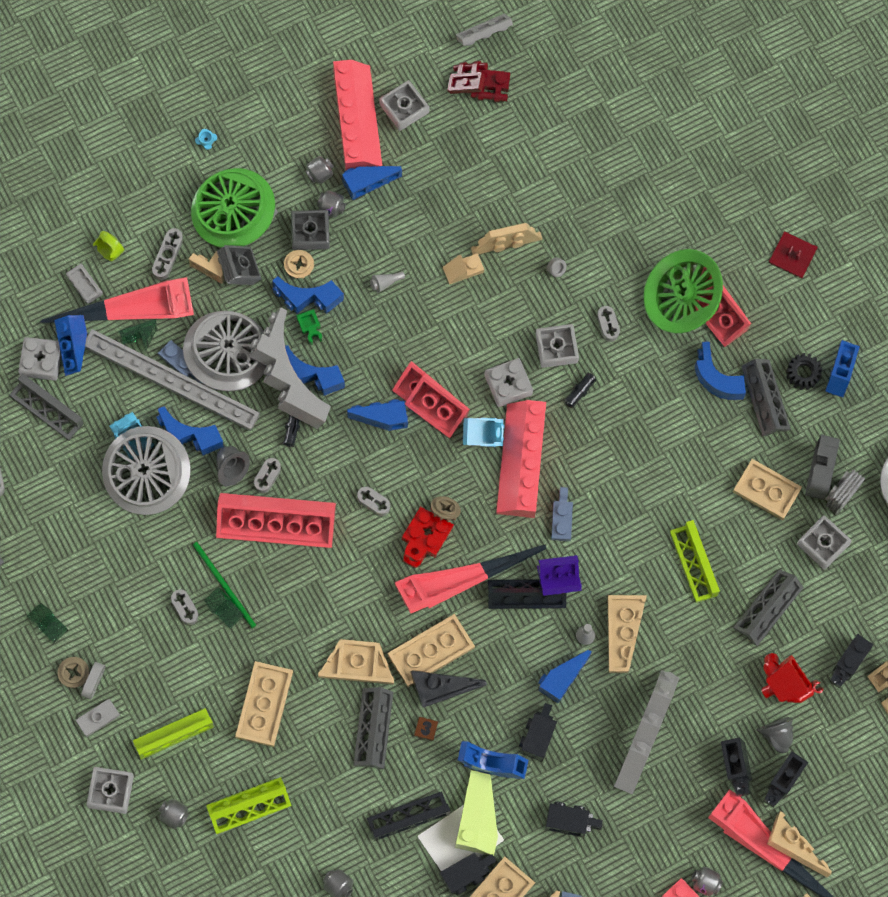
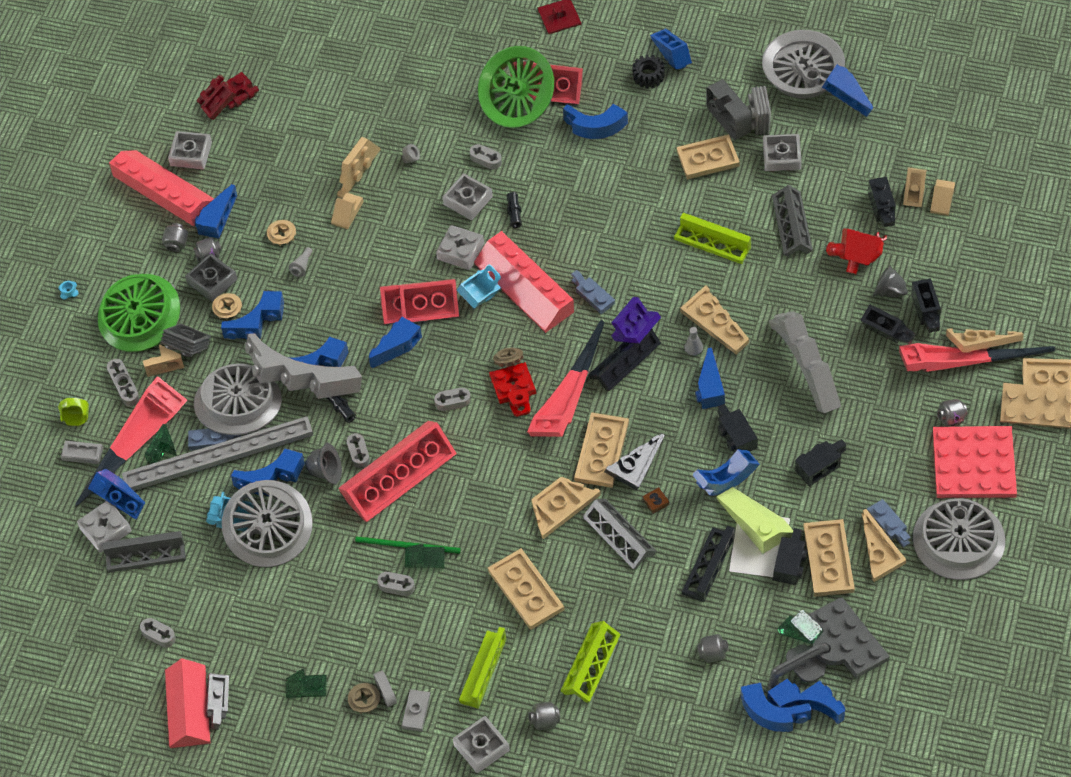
camera: 35 degrees left, 15 degrees down
(309, 324) = (278, 333): green plate -> none
(393, 234) = (286, 227): none -> tan gear
(484, 30) = (193, 62): light grey plate -> none
(763, 396) = (641, 107): dark grey fence -> none

